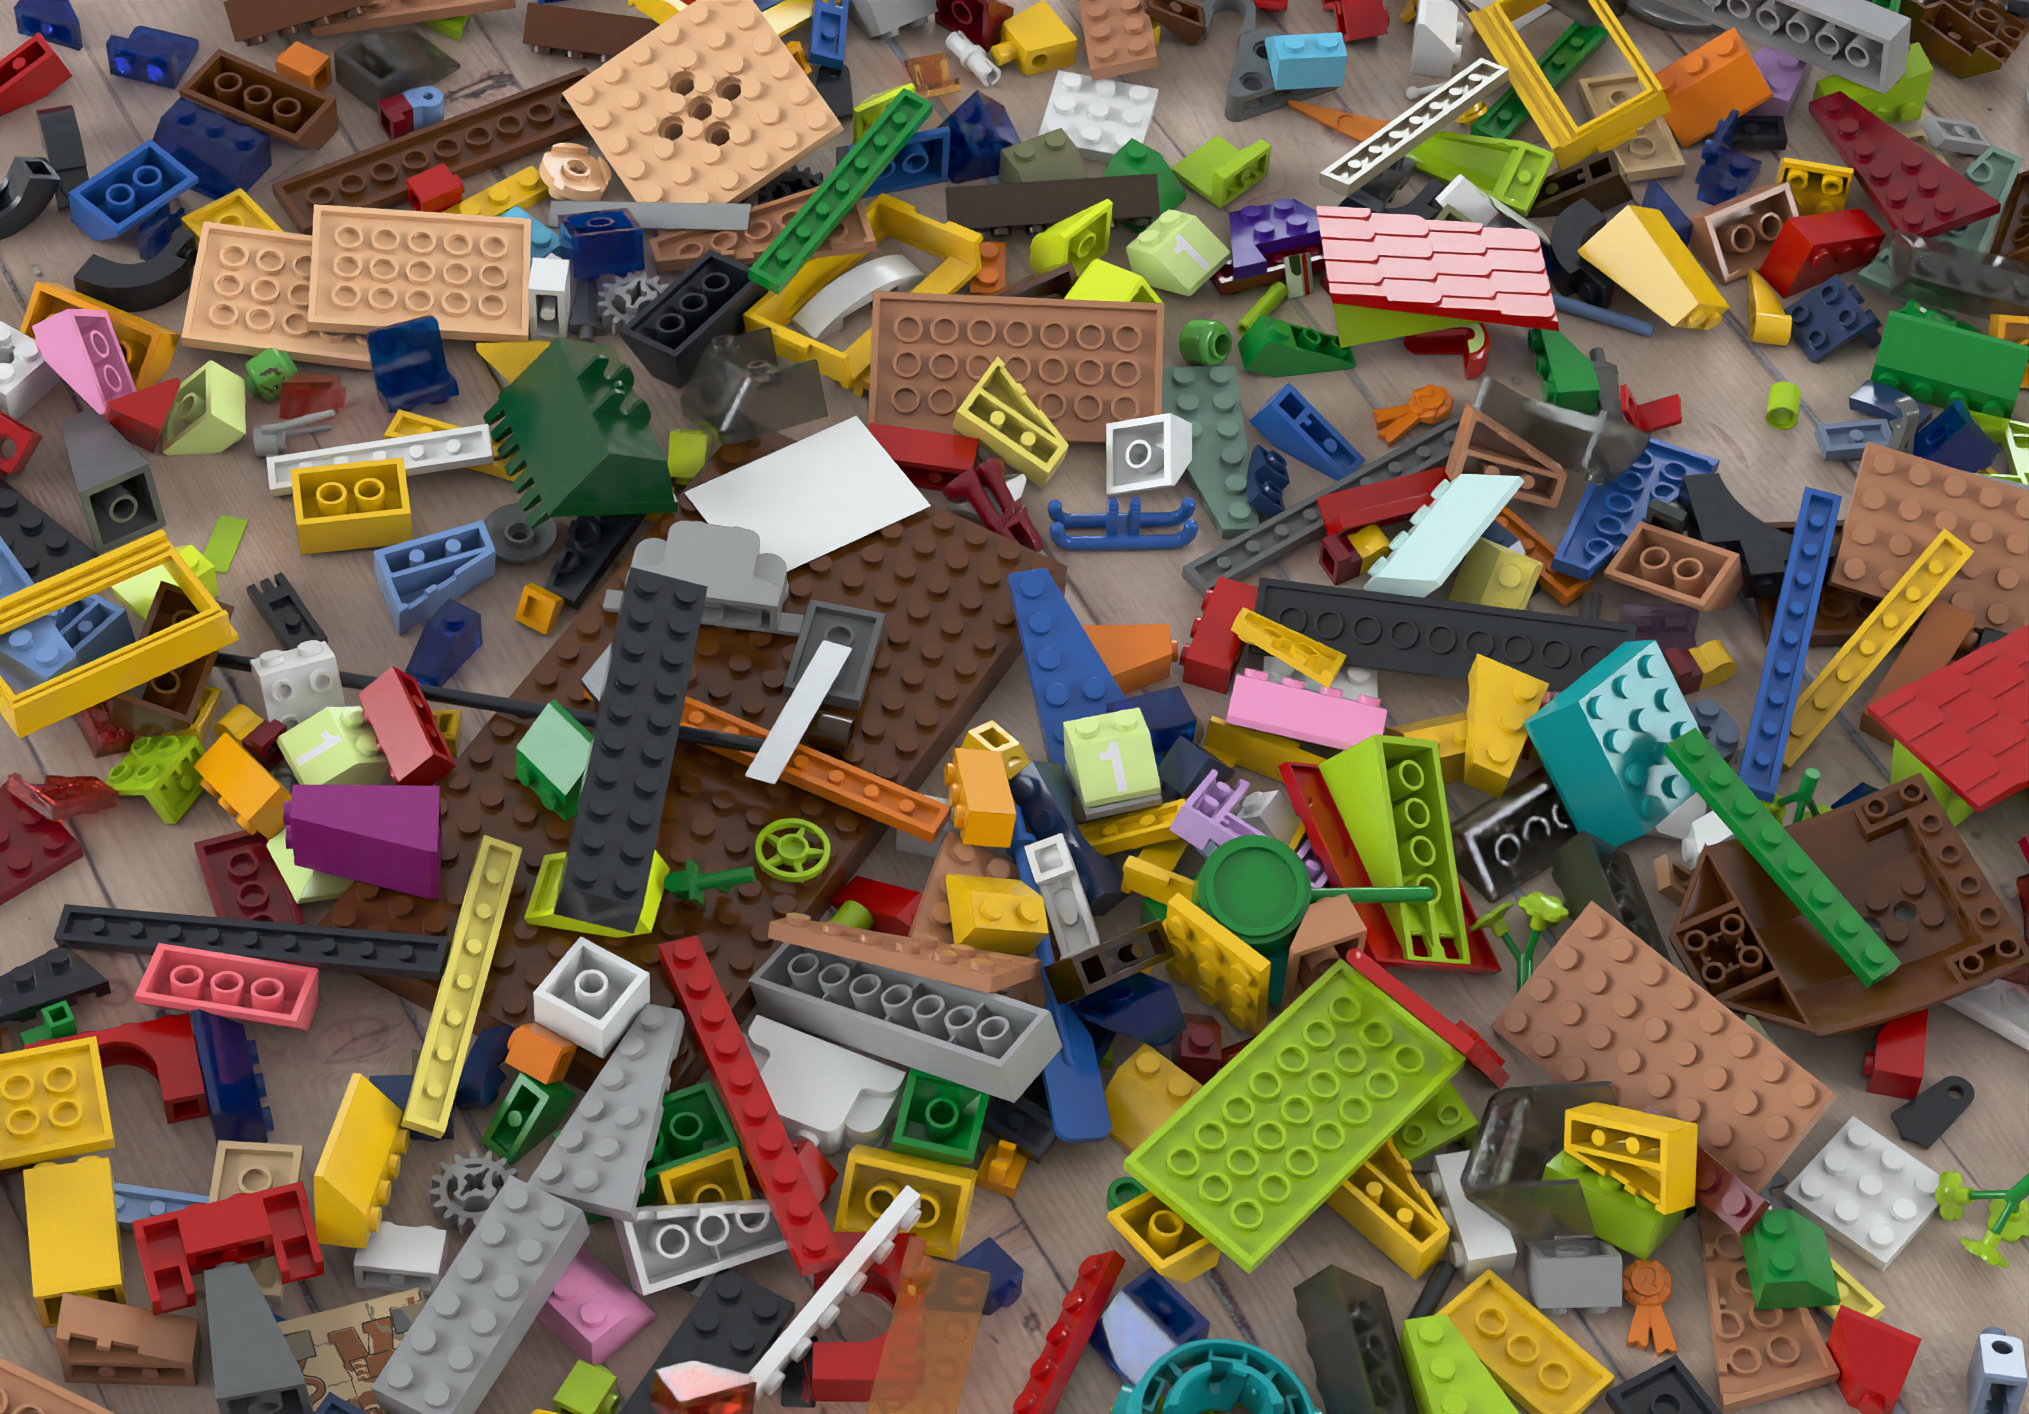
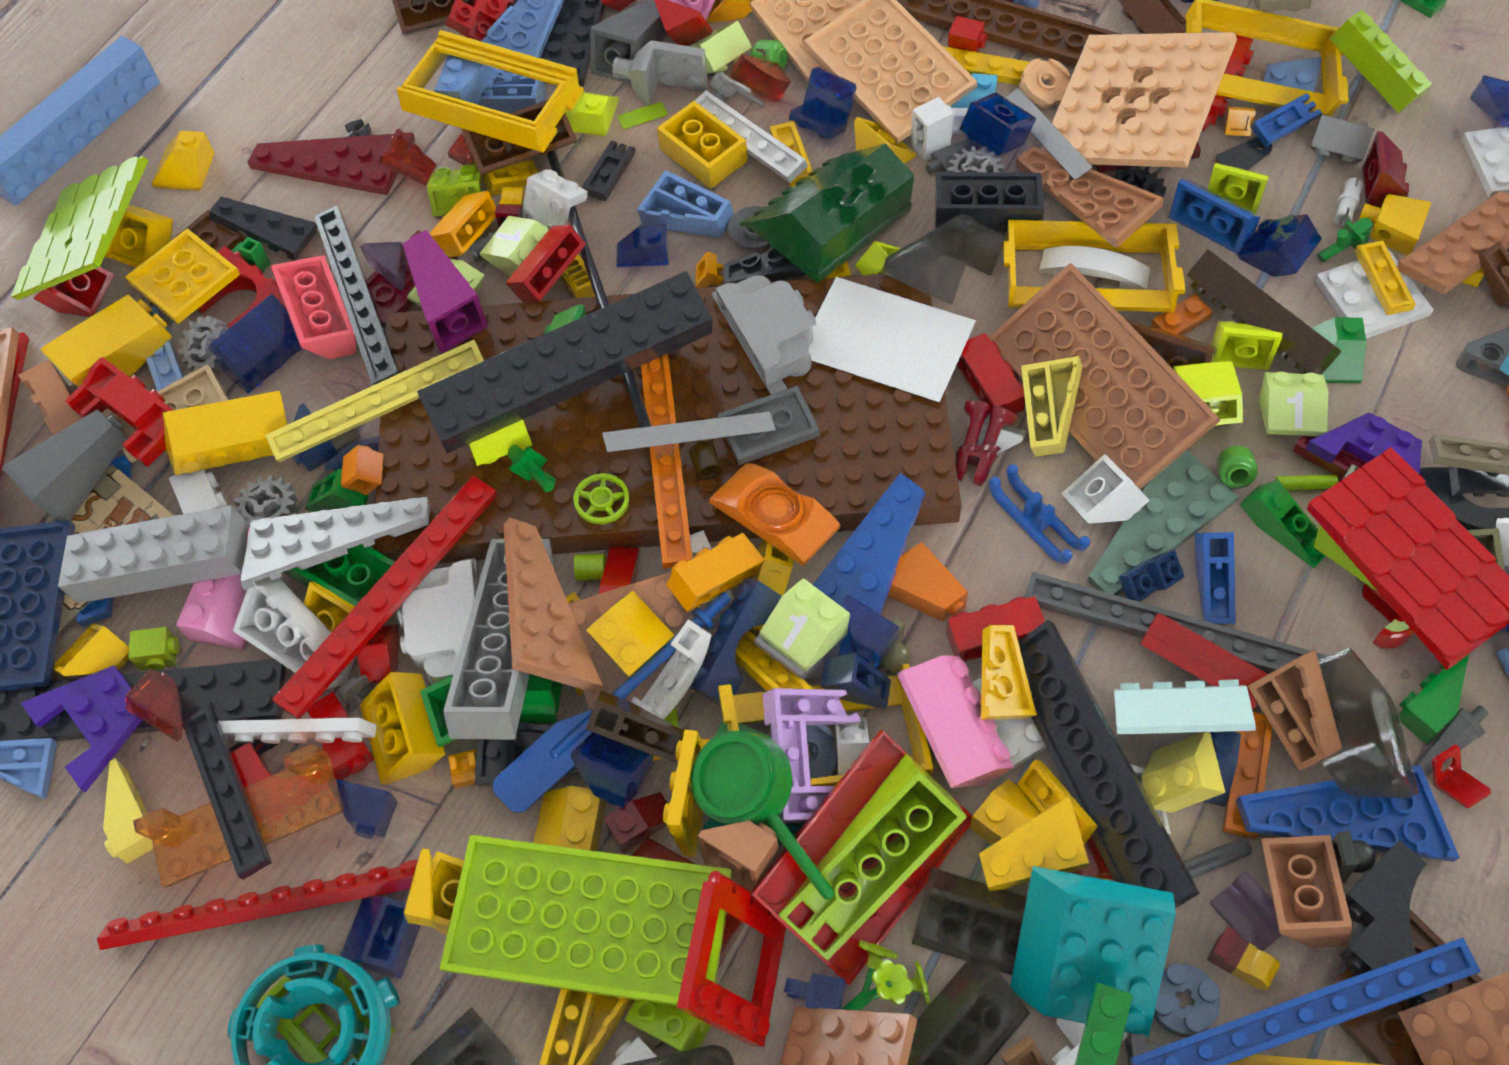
camera: 65 degrees right, 10 degrees up
(147, 1139) = (197, 343): none -> light grey gear
(193, 469) = (665, 65): none -> light grey plate
(232, 888) = (388, 260): none -> clear purple slope
(591, 997) = (401, 465): white brick -> none
(828, 1210) = (351, 691): none -> dark grey piece
(840, 191) = (1139, 197): green plate -> none
(874, 1377) = (226, 793): none -> black tile
(931, 75) = (1310, 192): clear orange slope -> none
(947, 710) = (776, 512): none -> orange slope
(1020, 83) = (1351, 235): none -> green arm
(1042, 159) = (1295, 288): olive slope -> none
(1095, 93) = (1385, 278): none -> yellow tile
(1154, 1234) = (420, 898): none -> yellow slope
(1222, 170) = (1402, 386): lime bracket -> none
(1353, 553) = (1141, 666): leg -> none
(1426, 405) = (1318, 632): orange piece -> none
(1431, 699) = (1047, 791): none -> yellow tile
(1491, 994) = (821, 992): none -> clear blue plate

